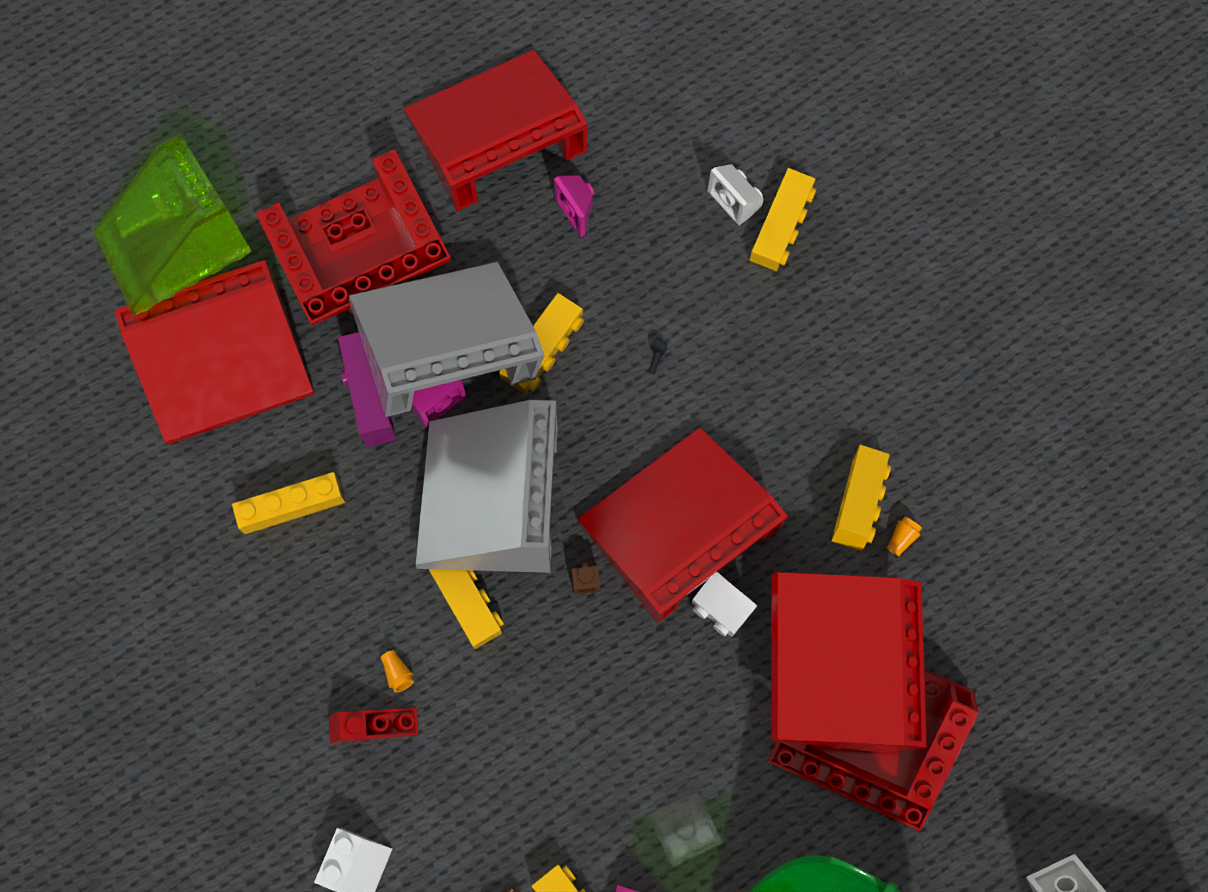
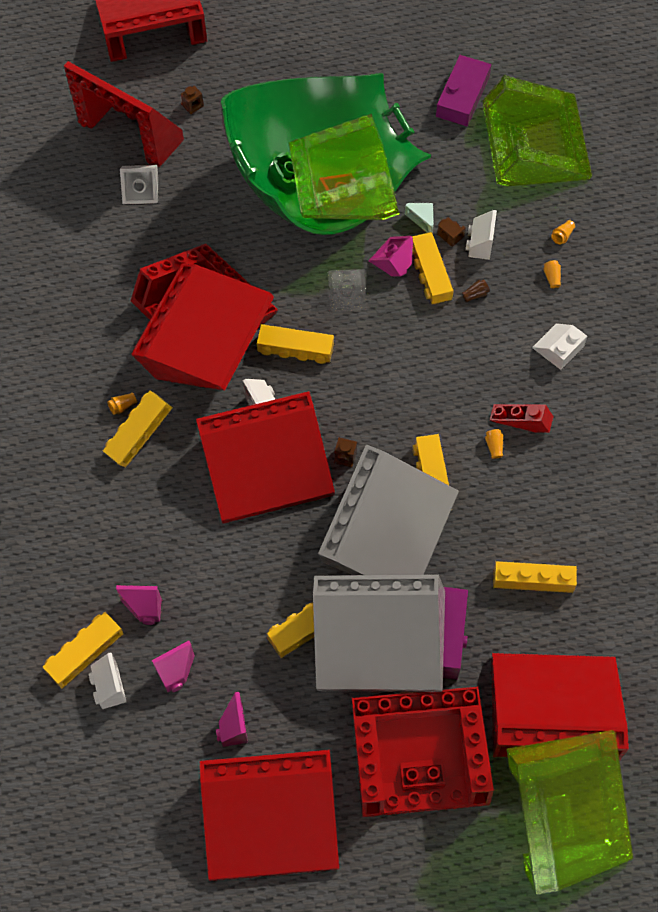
camera: 155 degrees left, 10 degrees down
(660, 348) = (221, 590): black hand -> none
(670, 233) = (175, 666): none -> dark pink slope
(719, 713) = (295, 343): none -> yellow brick
(744, 290) = (142, 602): none -> dark pink slope

